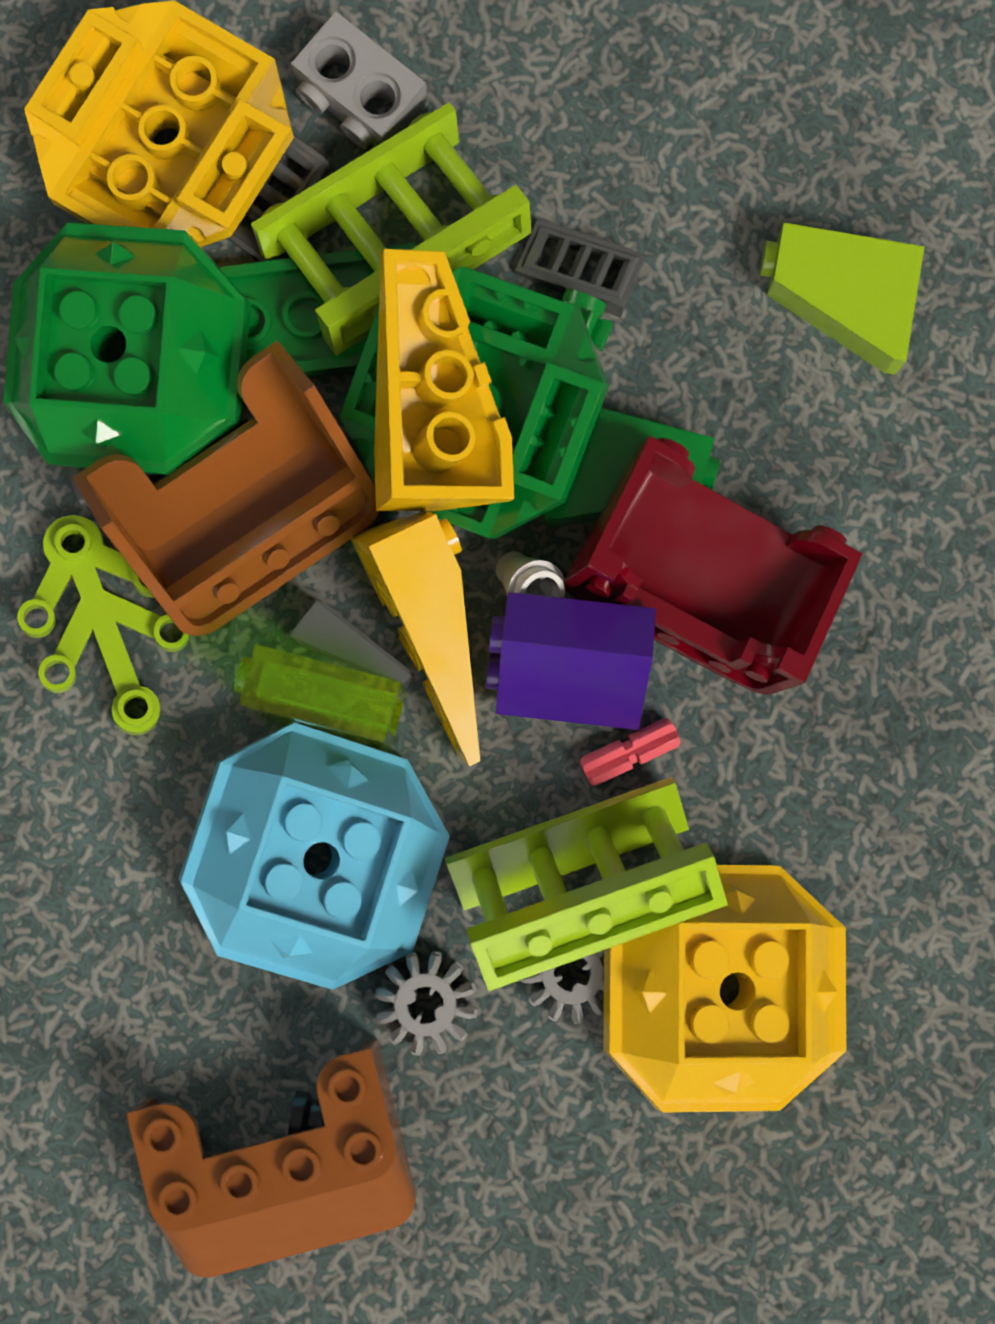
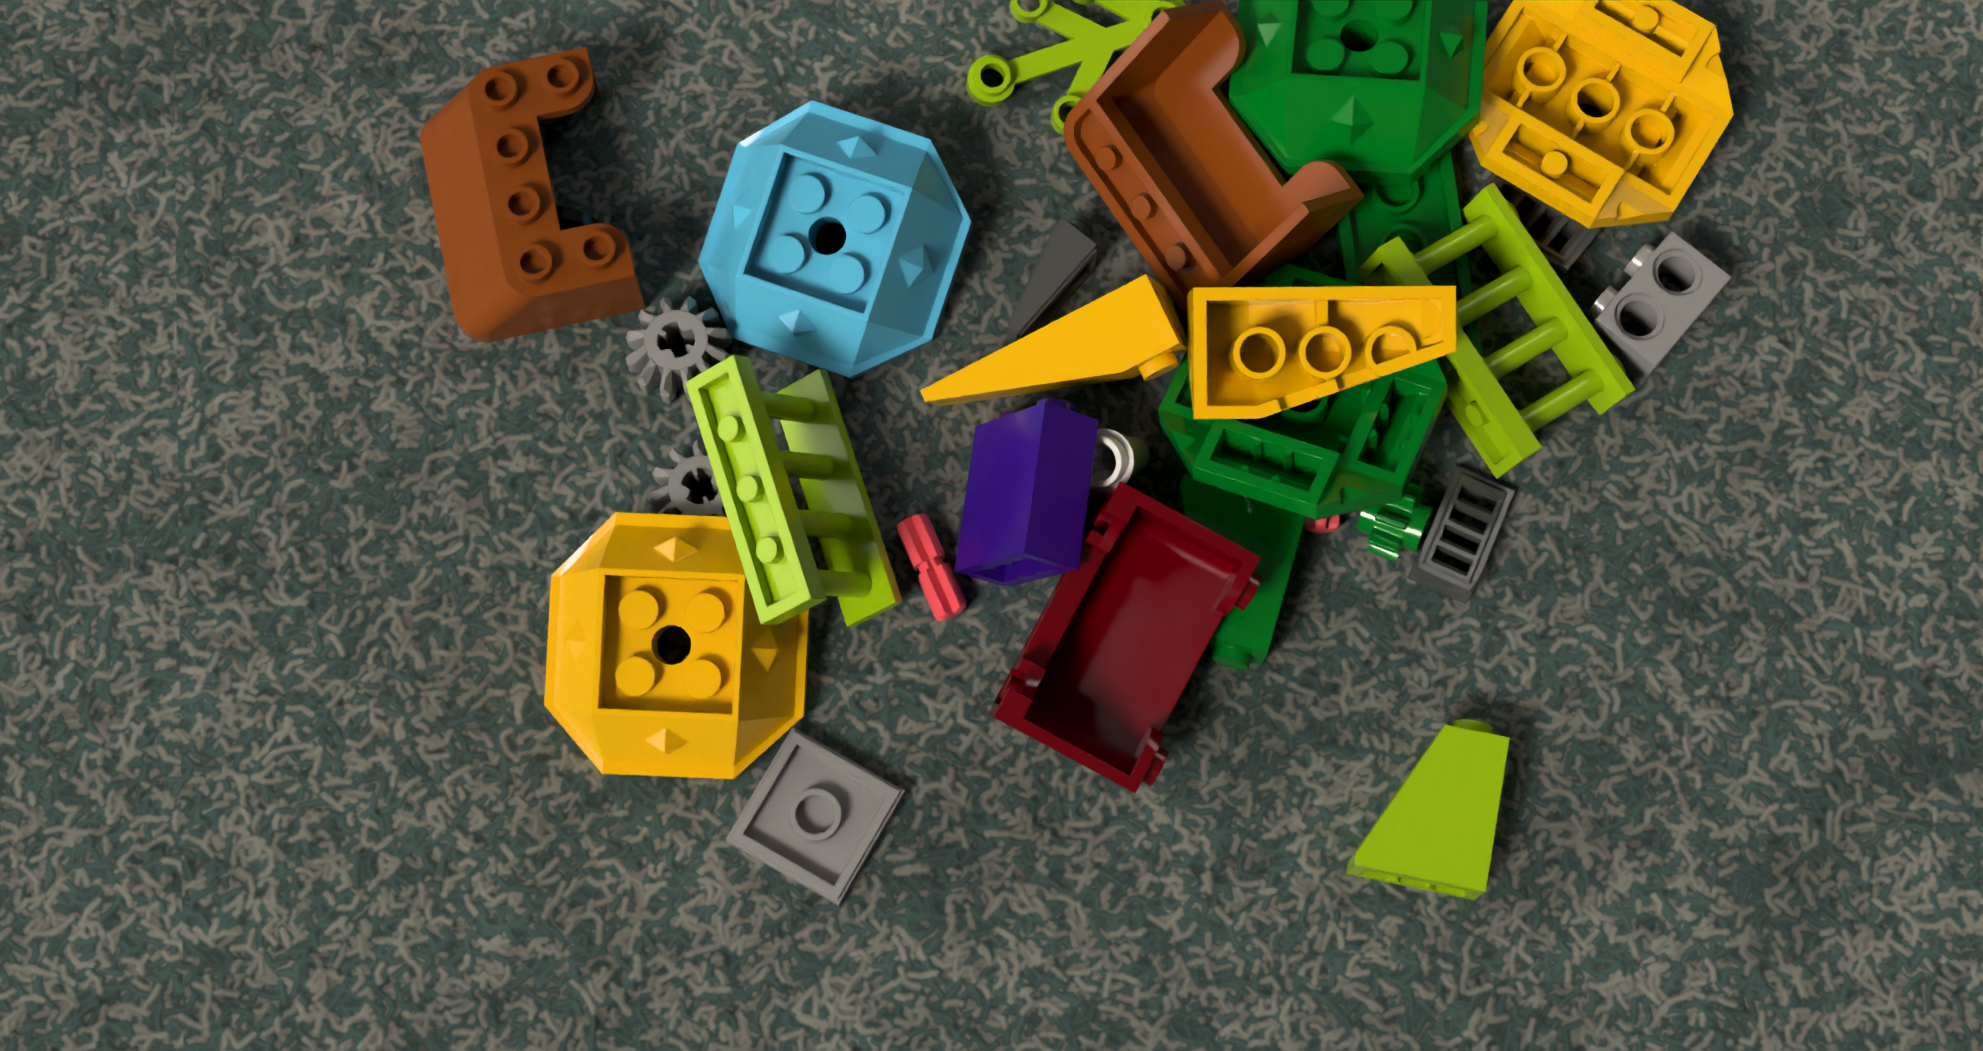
camera: 85 degrees right, 10 degrees down
(320, 695) = (995, 246): clear neon green brick -> none
(869, 850) = (815, 816): none -> light grey tile

